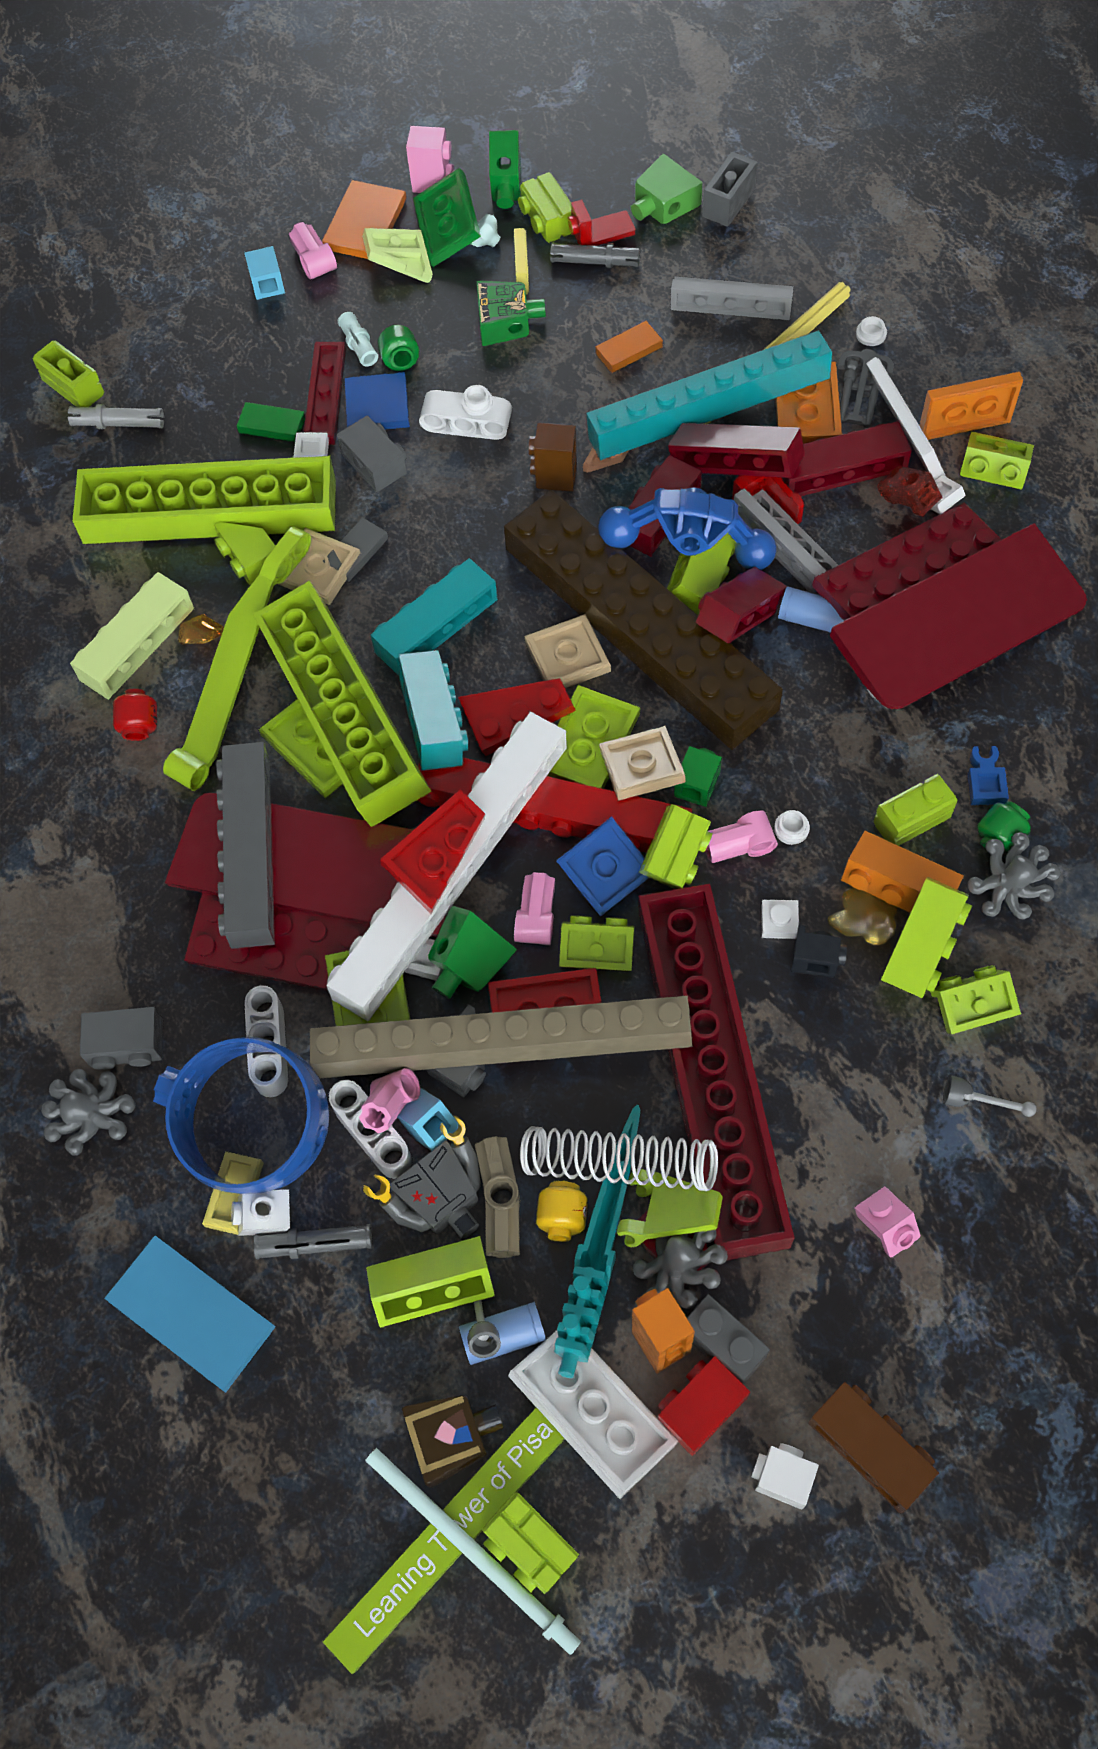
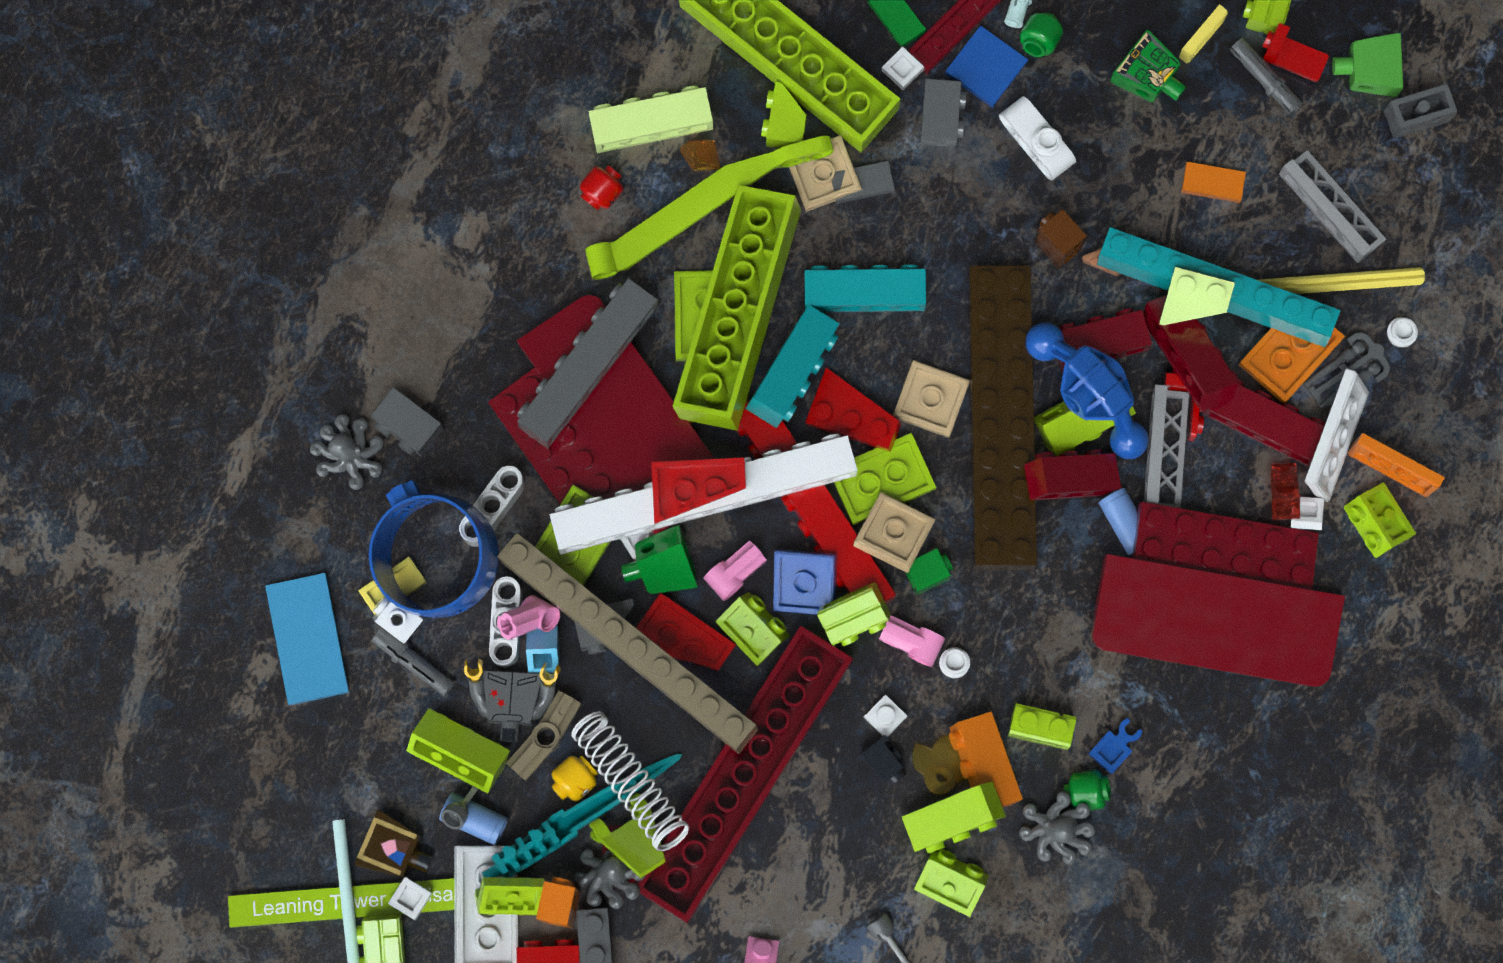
camera: 40 degrees right, 15 degrees up
(511, 1466) = (410, 898): none -> white plate
(607, 1367) = (509, 896): none -> lime bracket
(702, 401) = (1195, 296): none -> yellowish green wing

